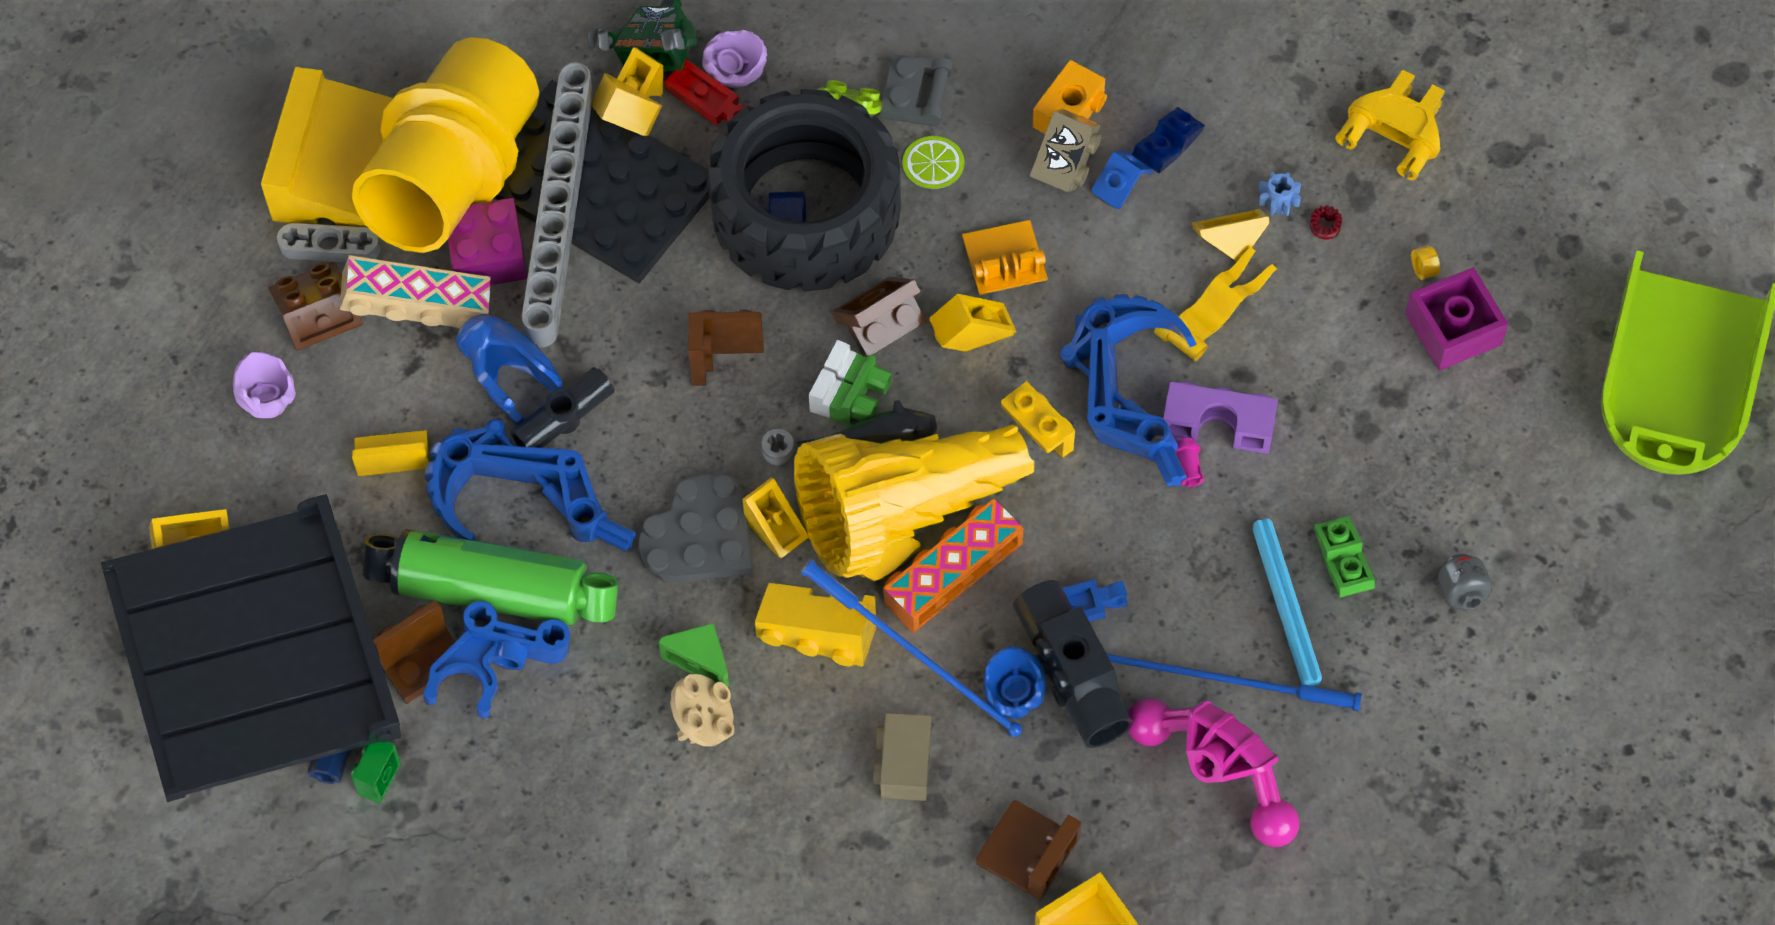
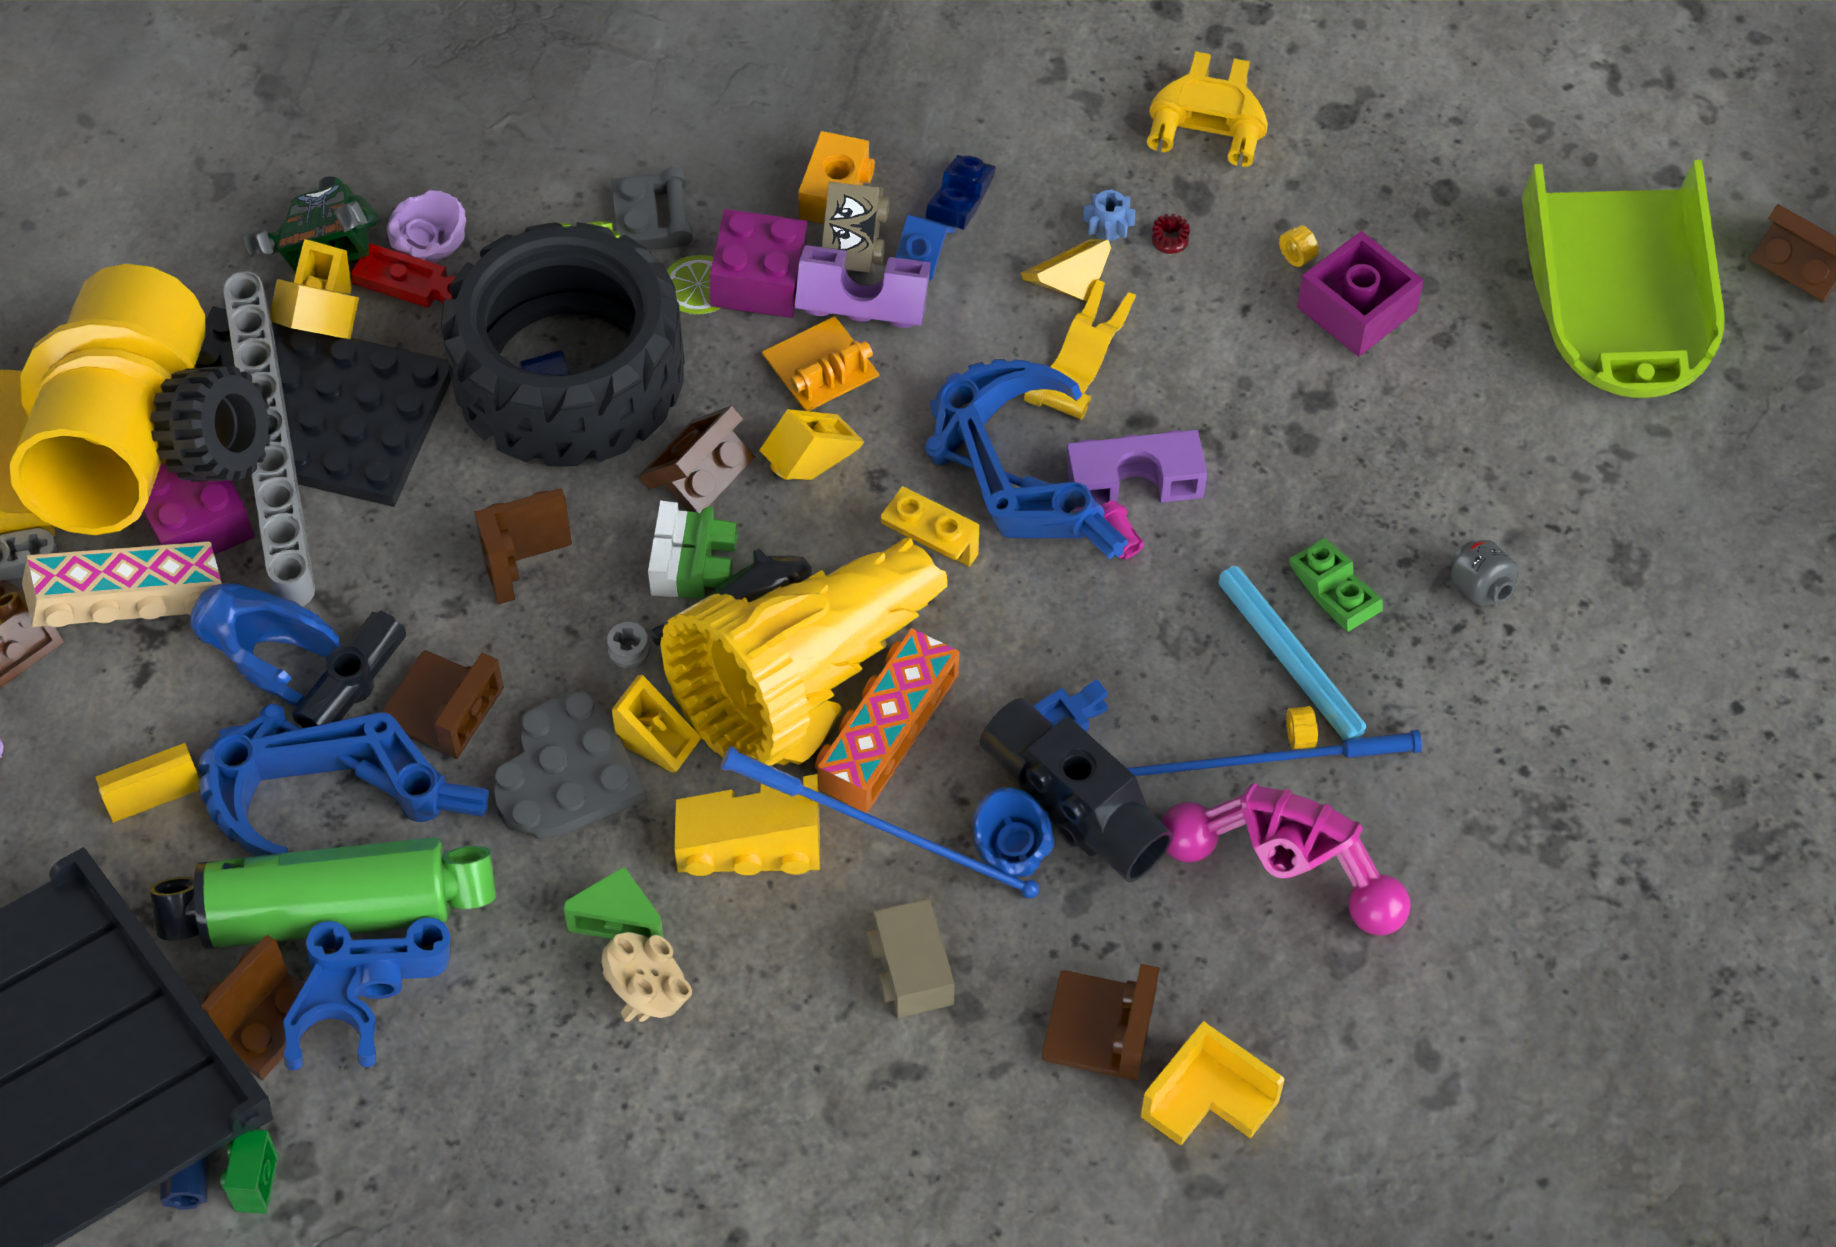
camera: 20 degrees left, 5 degrees down
(512, 189) = (211, 424): none -> black tyre
(625, 453) = (445, 701): none -> reddish brown bracket
(982, 159) = (757, 263): none -> magenta brick
(1029, 196) = (827, 289): none -> medium lavender arch
(1270, 665) = (1301, 727): none -> yellow axle

